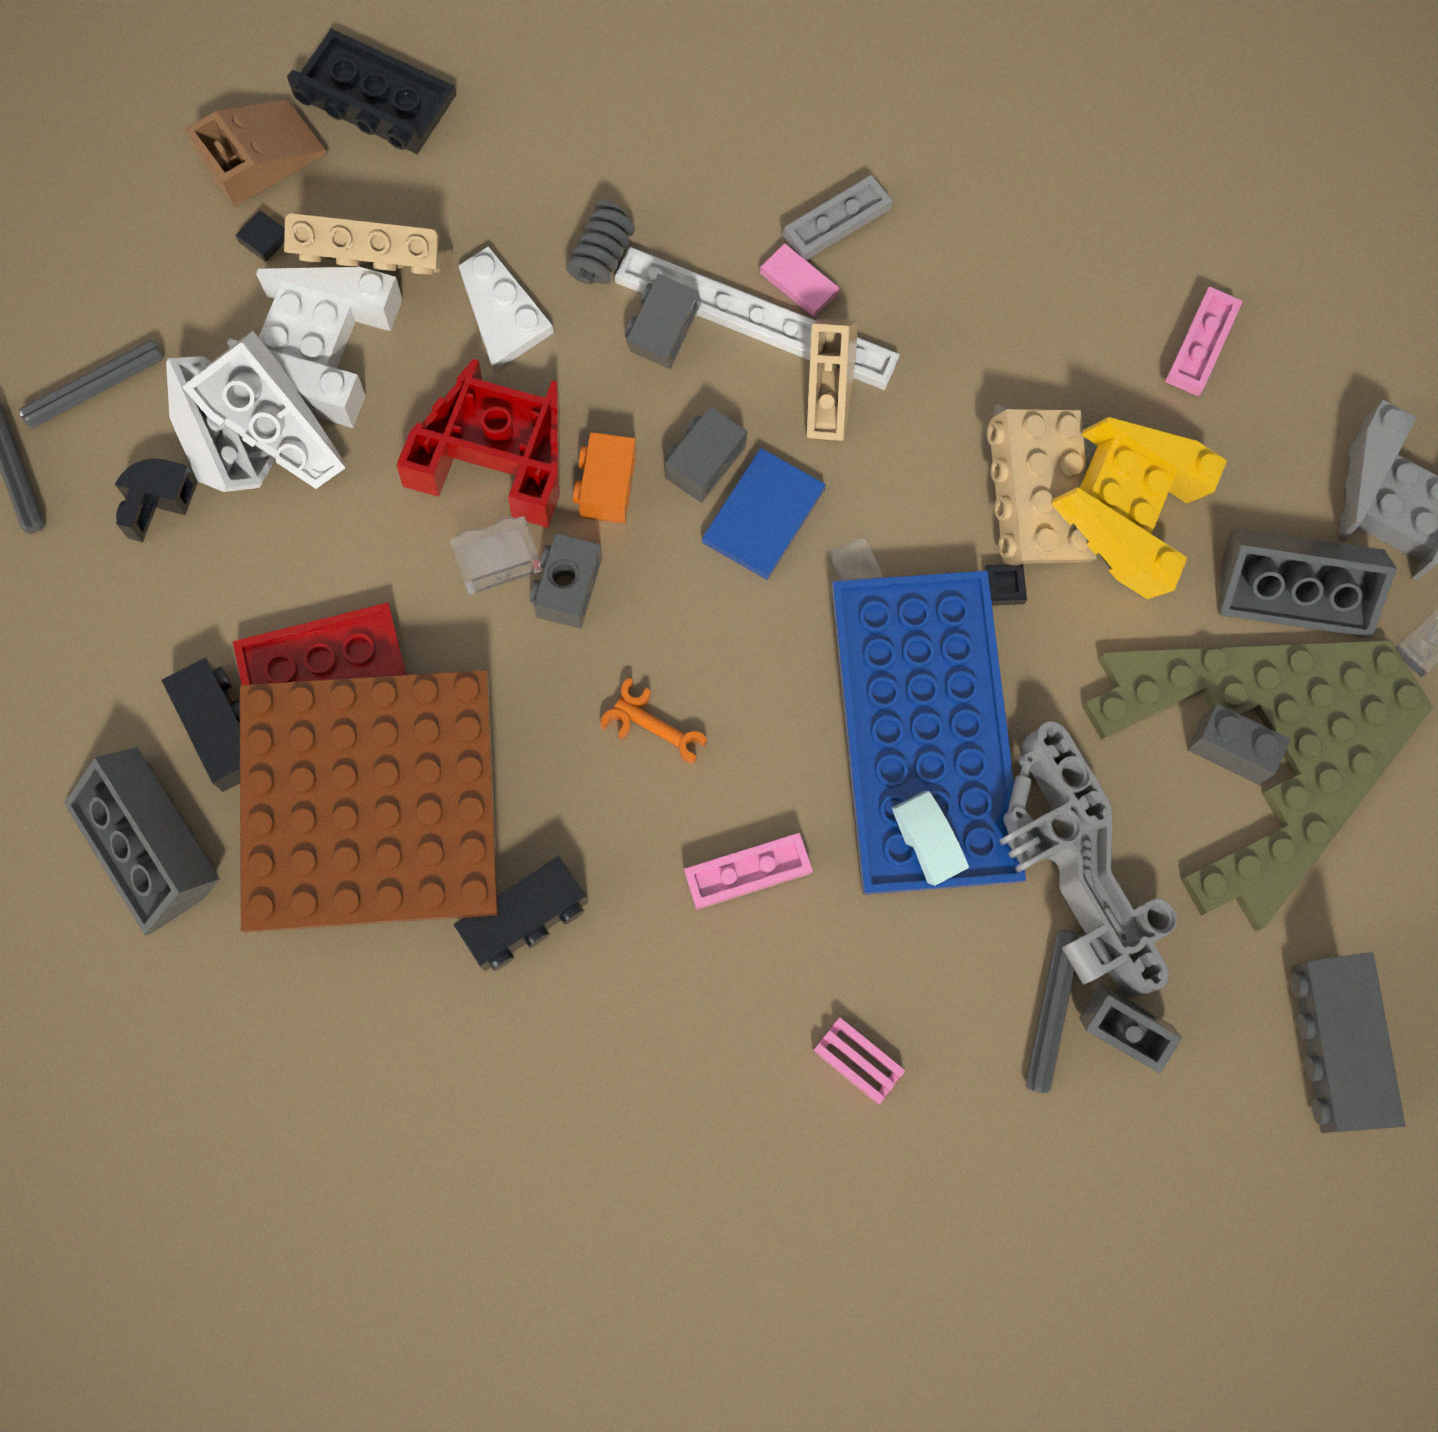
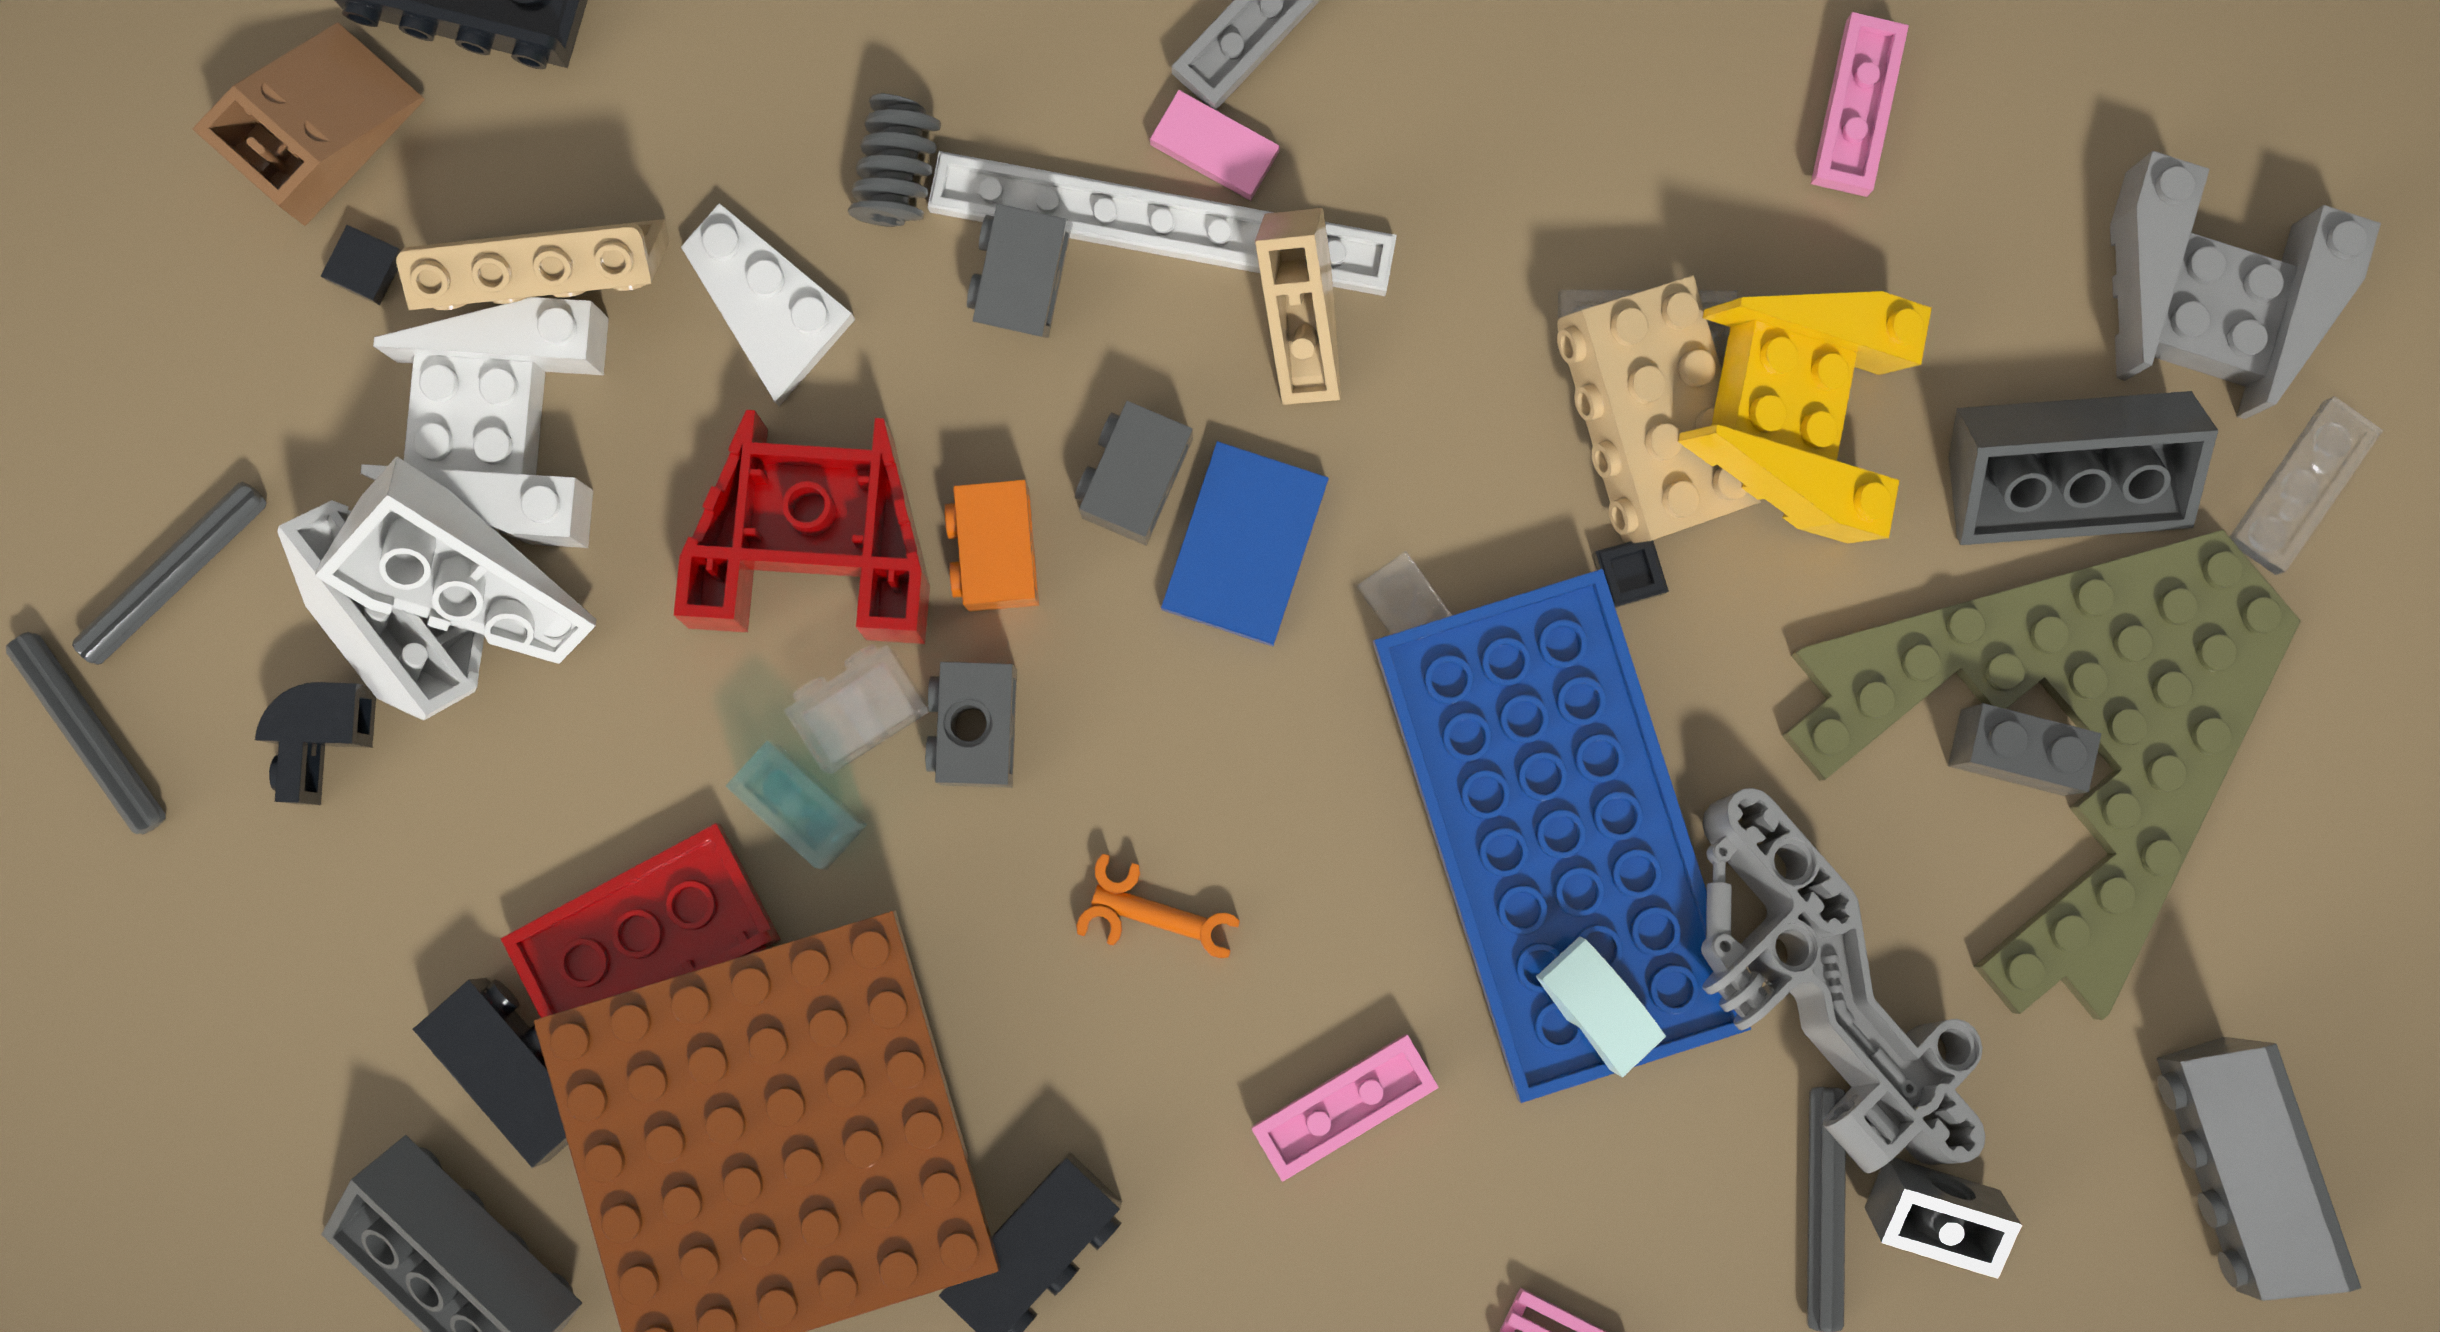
camera: 10 degrees left, 10 degrees up
(442, 600) = (796, 805): none -> clear light blue brick

